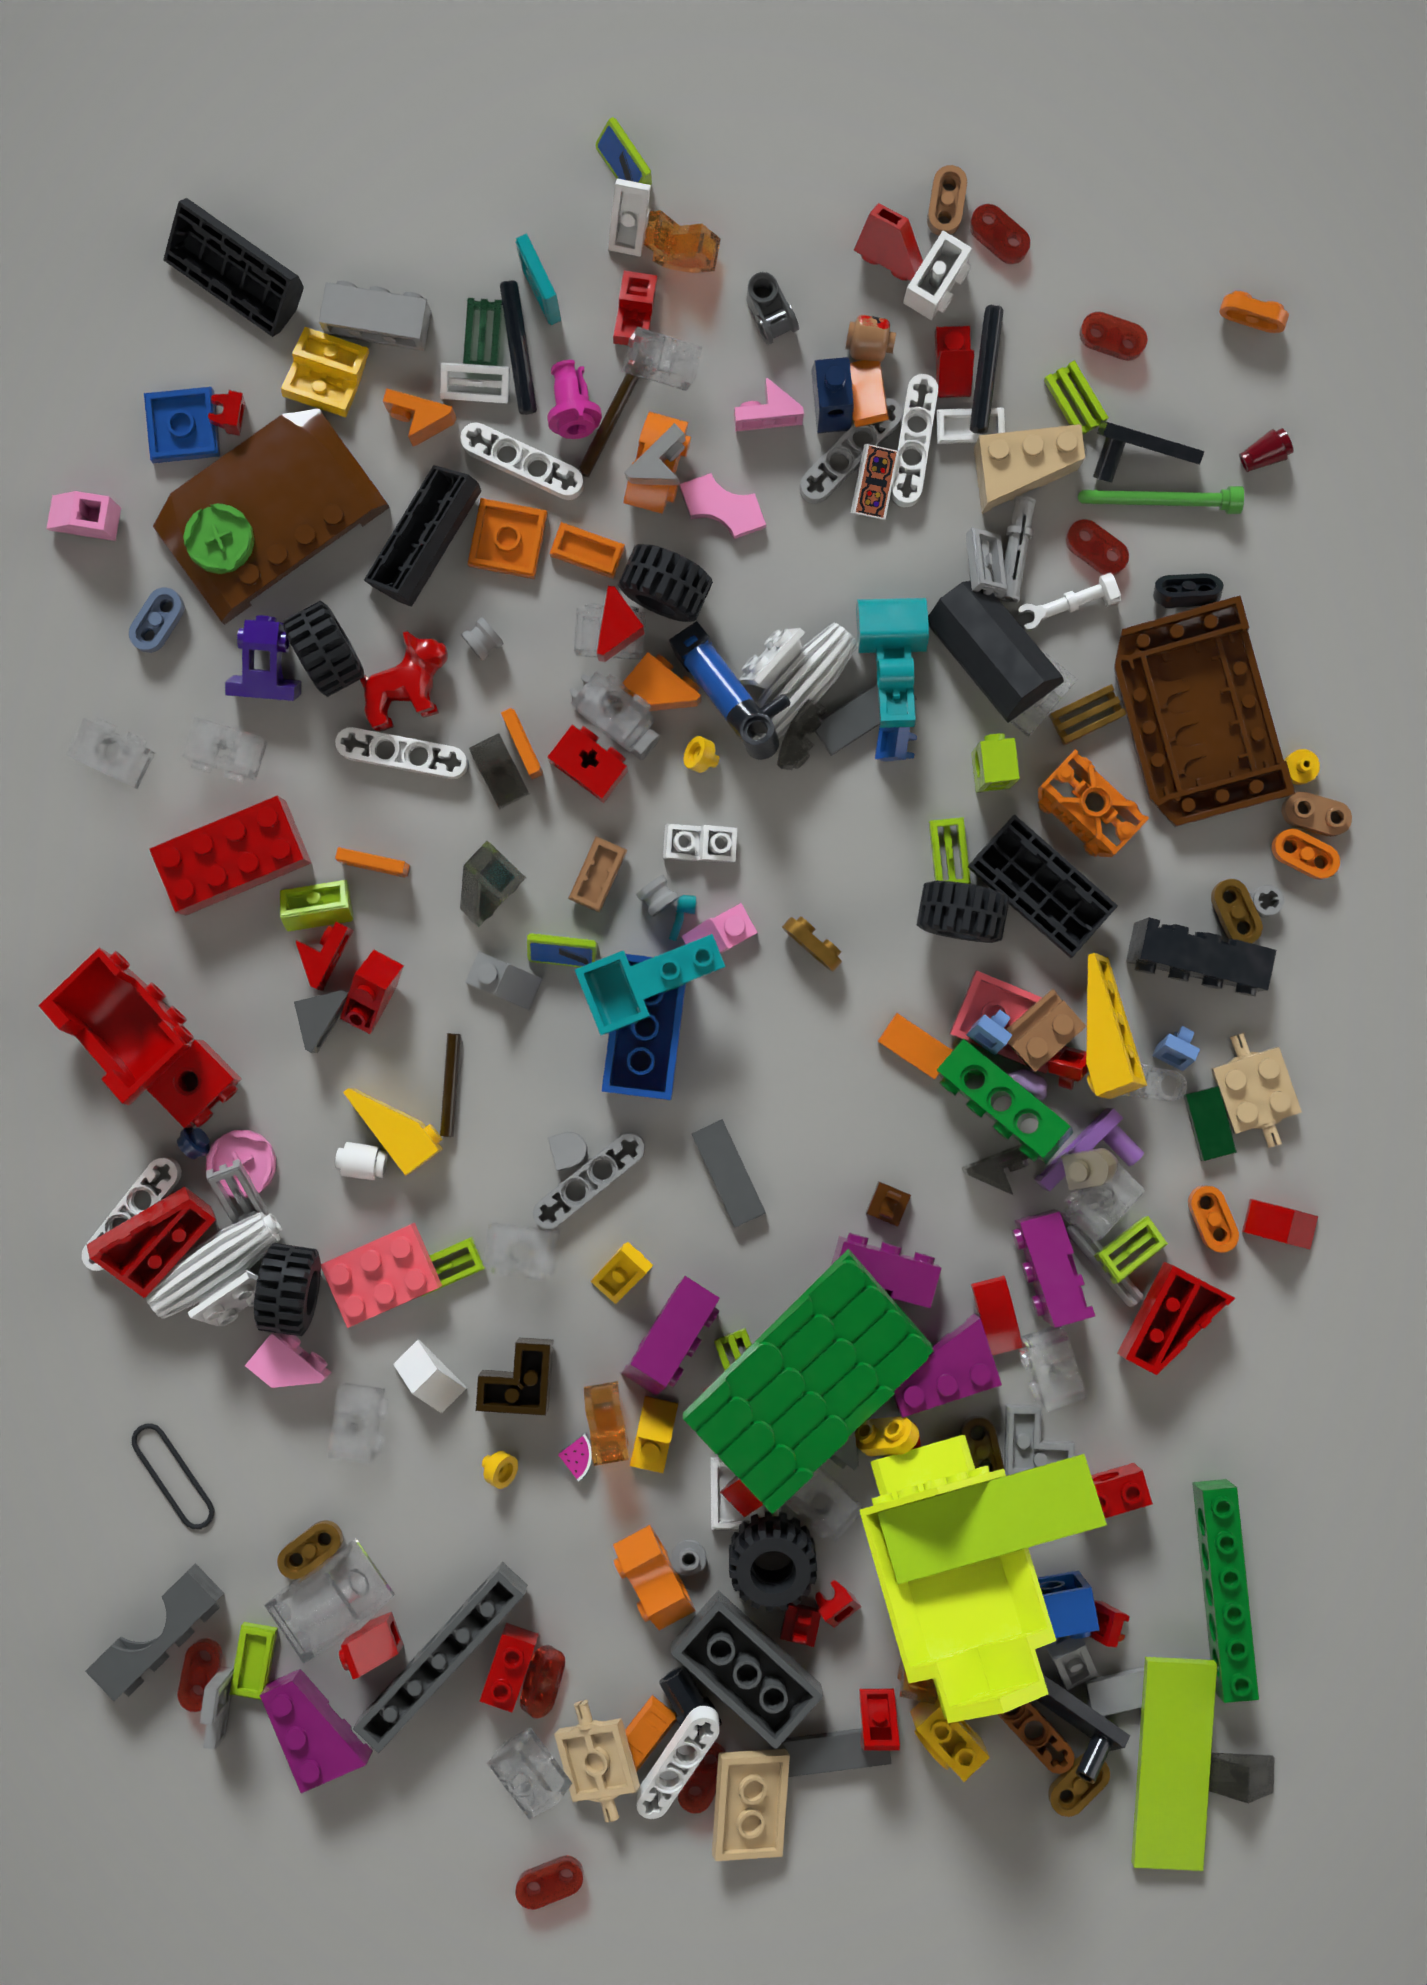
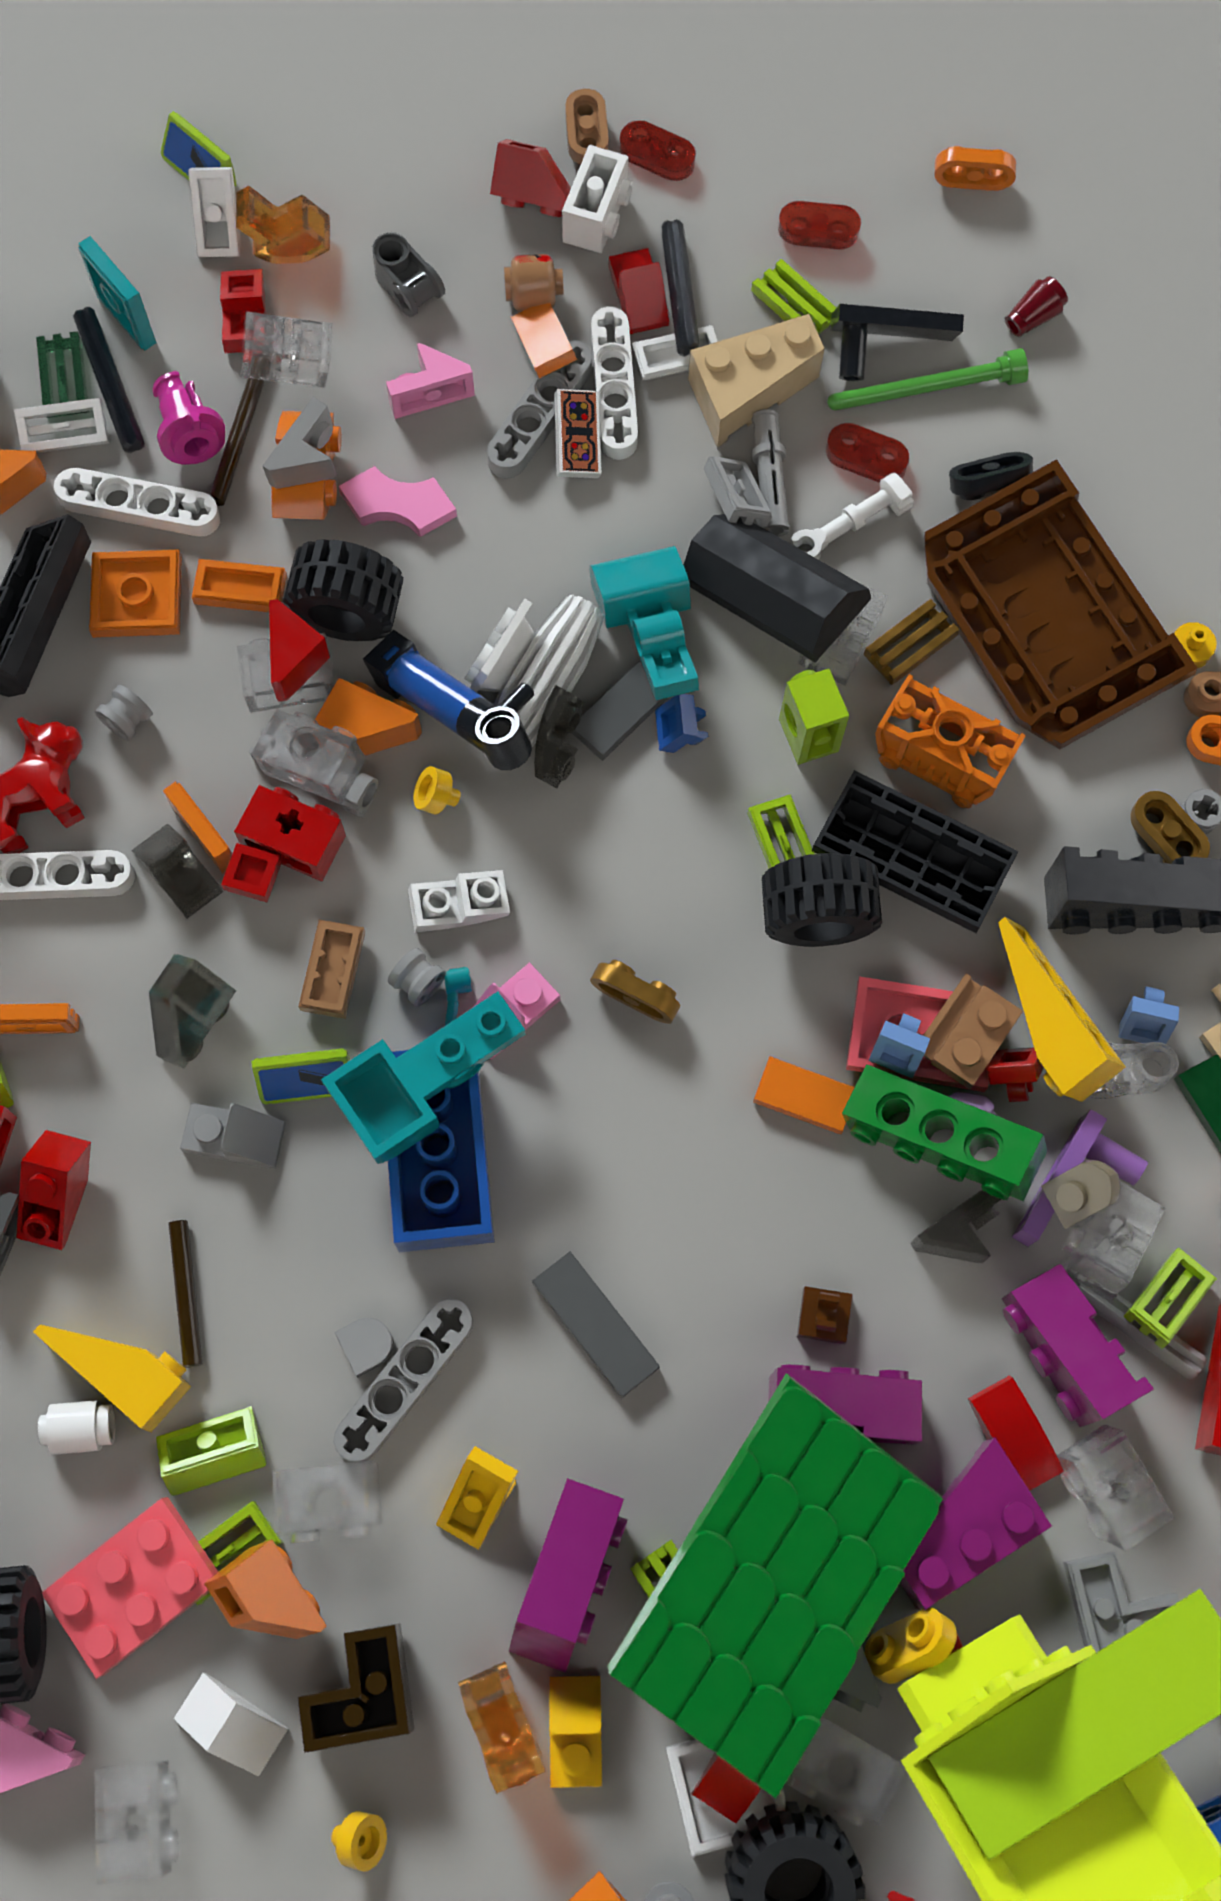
camera: 10 degrees left, 15 degrees down
(448, 1196) = (210, 1451): none -> lime slope
(466, 1301) = (264, 1594): none -> orange slope
(553, 789) = (251, 872): none -> red tile
(578, 1456) = (472, 1792): dark pink tile -> none
(832, 391) = (496, 334): dark blue torso -> none
(987, 1446) = (1056, 1626): dark brown plate -> none

